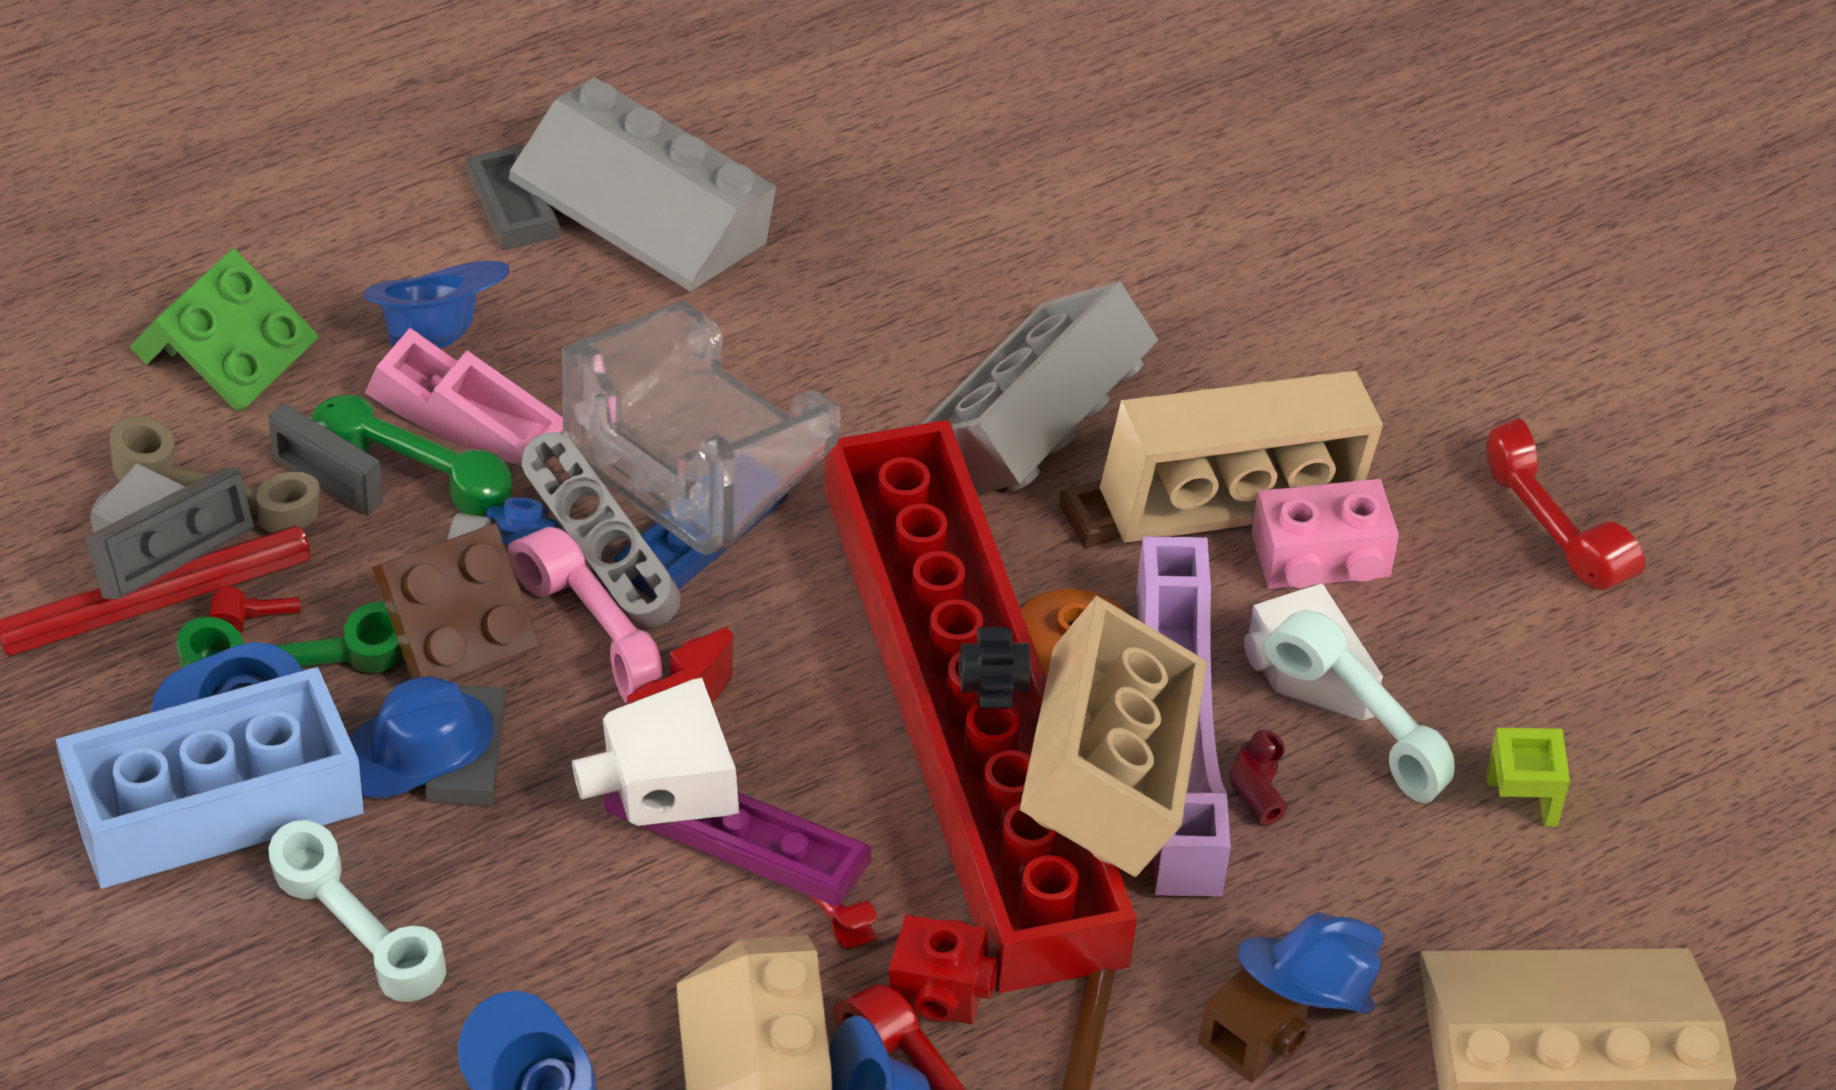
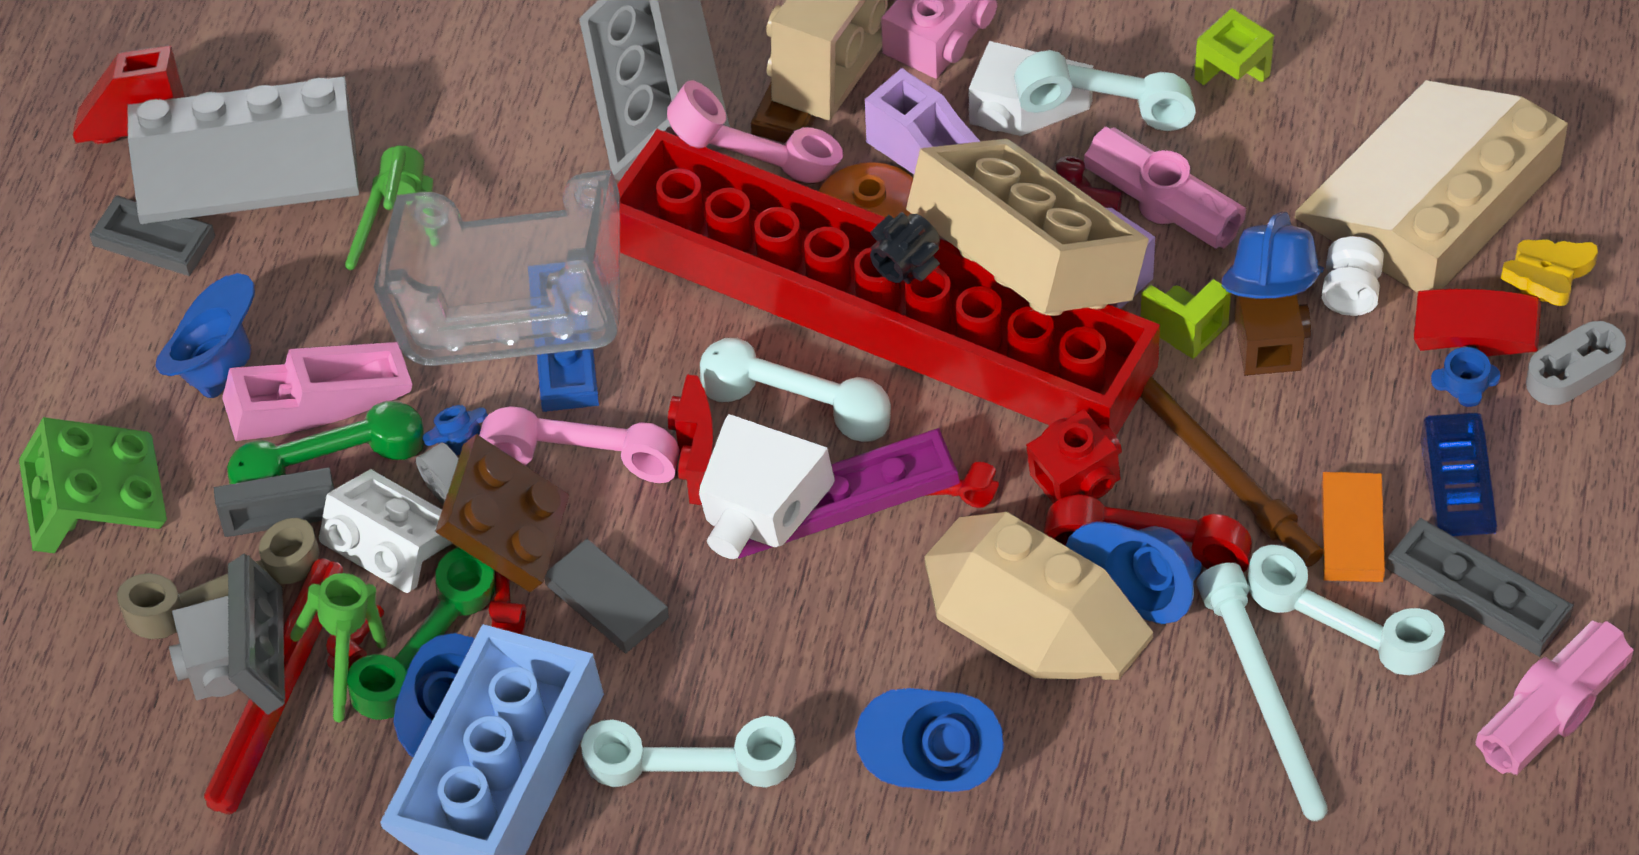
camera: 40 degrees left, 5 degrees up
(225, 563) = (342, 607): none -> bright green plant
(365, 530) = (382, 528): none -> white bracket
(375, 687) = (503, 613): none -> red hand
(420, 735) = (584, 607): blue piece -> none
(600, 528) = (519, 380): light grey beam -> none
(628, 65) = (128, 80): none -> red slope
(732, 305) = (399, 174): none -> bright green plant
(840, 774) = (859, 404): none -> light aqua piece
(973, 435) = (699, 121): none -> bright pink piece
(1201, 947) = (1187, 319): none -> lime panel
(1322, 826) = (1164, 187): none -> bright pink piece
(1389, 1040) = (1352, 276): none -> white wheel

